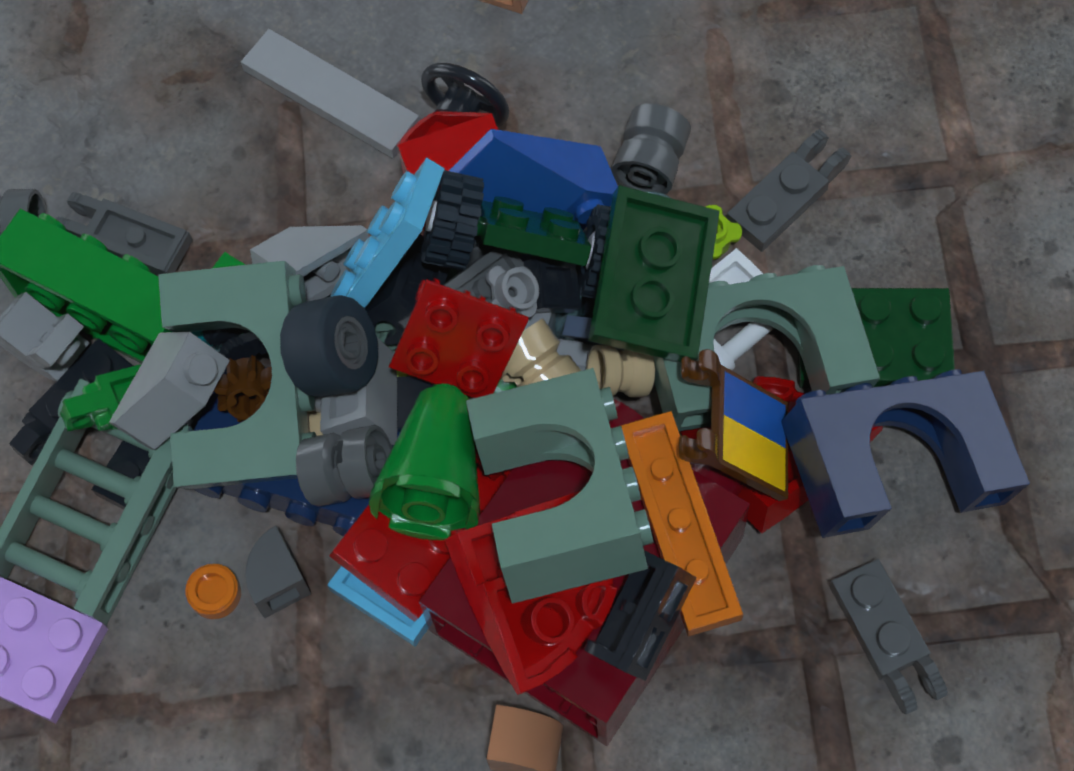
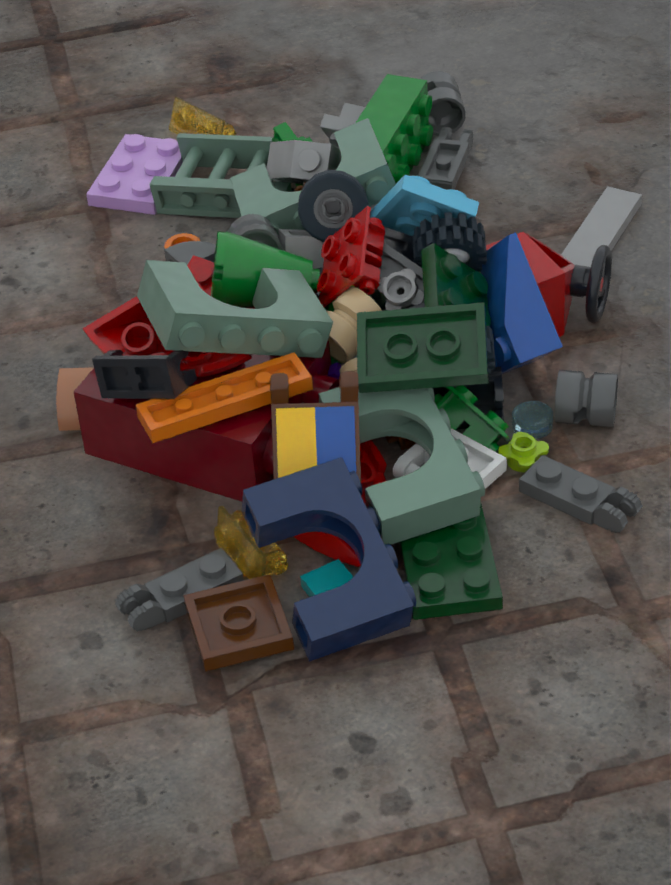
camera: 80 degrees right, 25 degrees down
(819, 560) = (237, 540): none -> clear yellow hinge
(903, 465) = (325, 578): none -> teal tile
(959, 570) = (238, 622): none -> reddish brown plate

